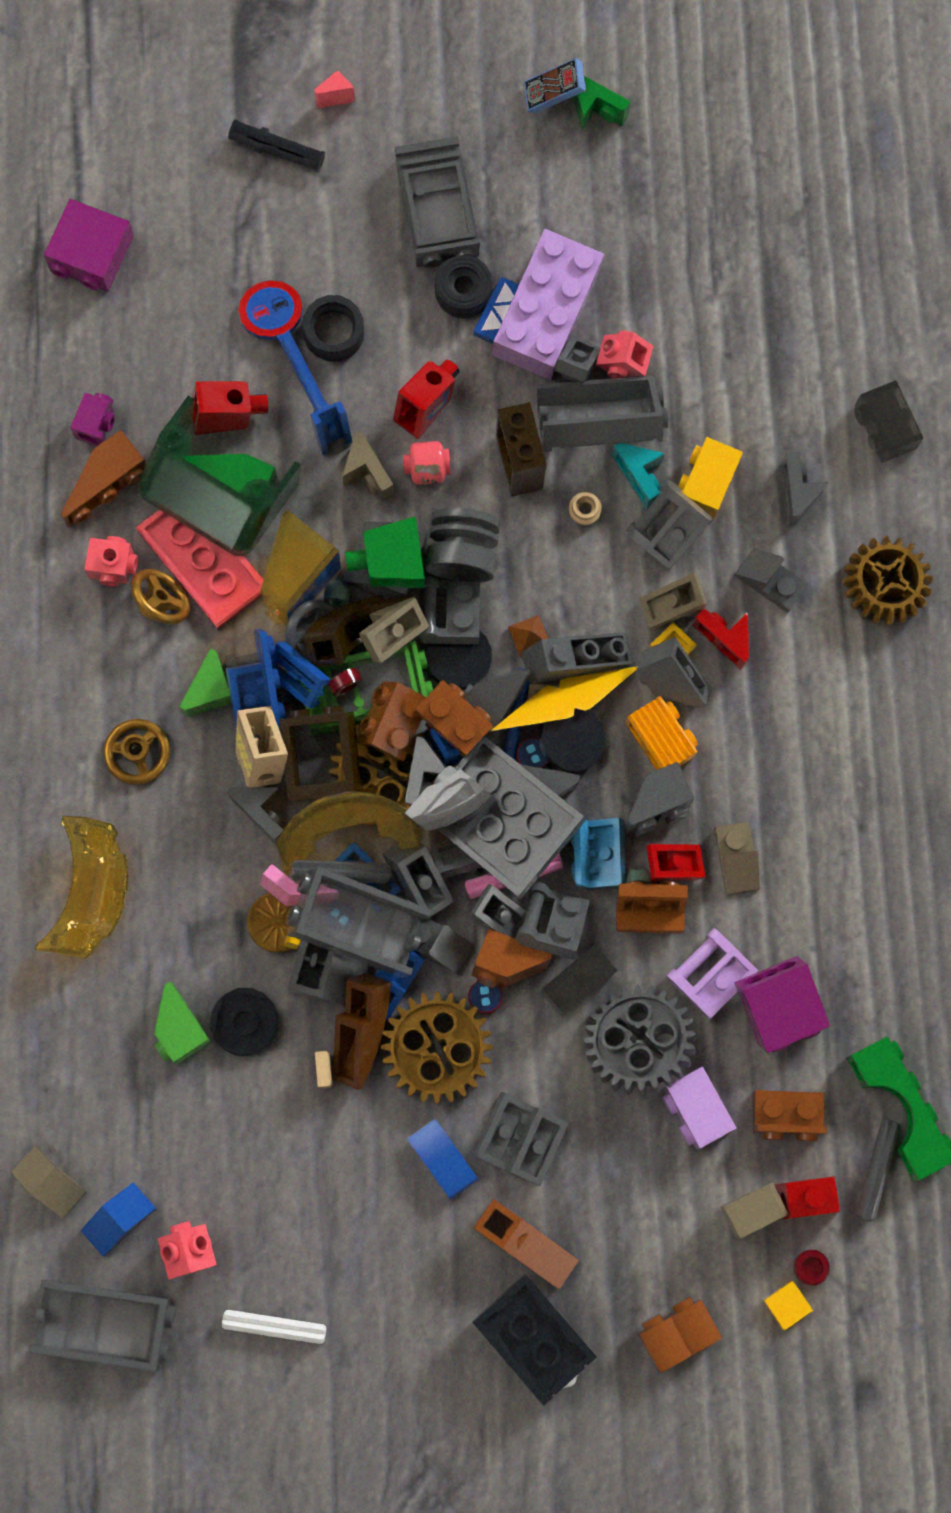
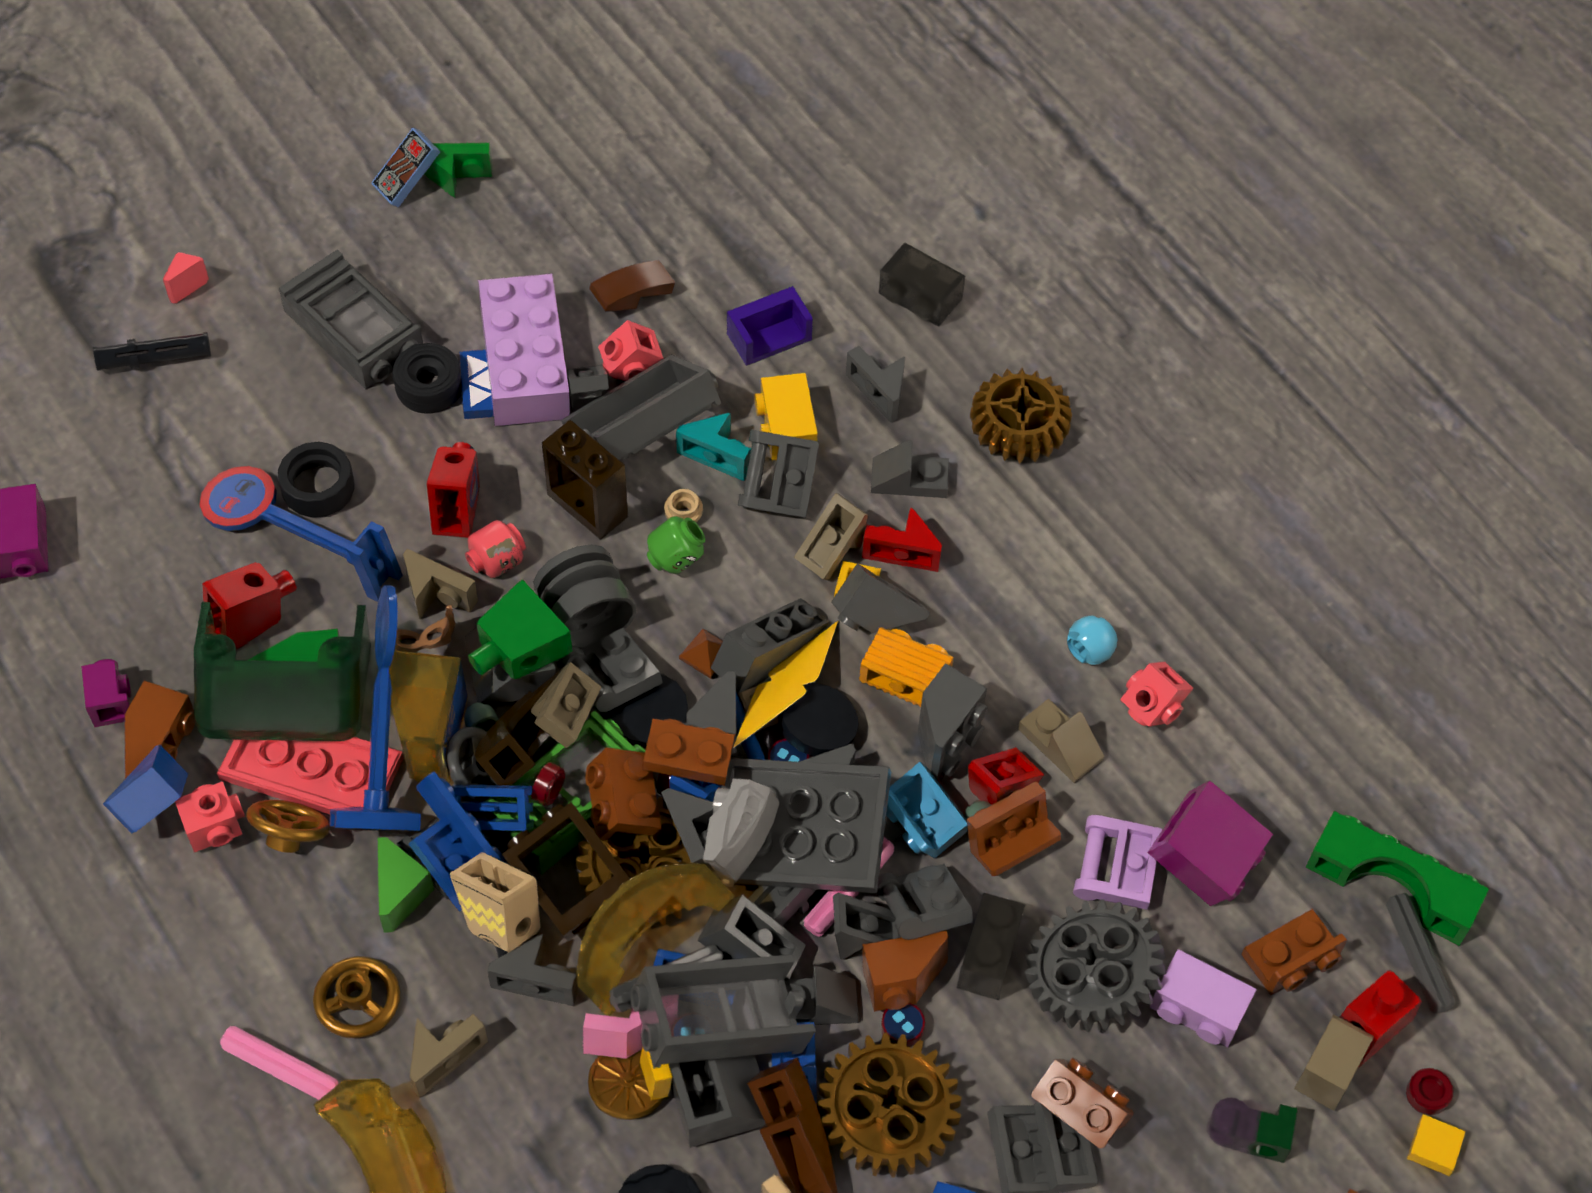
camera: 30 degrees left, 20 degrees down
(60, 769) = (277, 1062): none -> bright pink axle
(78, 519) = (147, 790): none -> blue slope
(158, 830) = (436, 1059): none -> dark tan slope
(220, 628) = (375, 808): none -> blue piece
(314, 491) = (444, 626): none -> medium nougat cap
(557, 538) = (675, 544): none -> bright green head
(566, 1128) = (1081, 1102): none -> bracket
(658, 1208) = (1253, 1130): none -> leg
(663, 291) = (627, 285): none -> reddish brown slope
(747, 390) = (769, 325): none -> dark purple panel
(811, 796) = (1092, 640): none -> medium azure piece
(825, 868) = (1155, 694): none -> coral brick

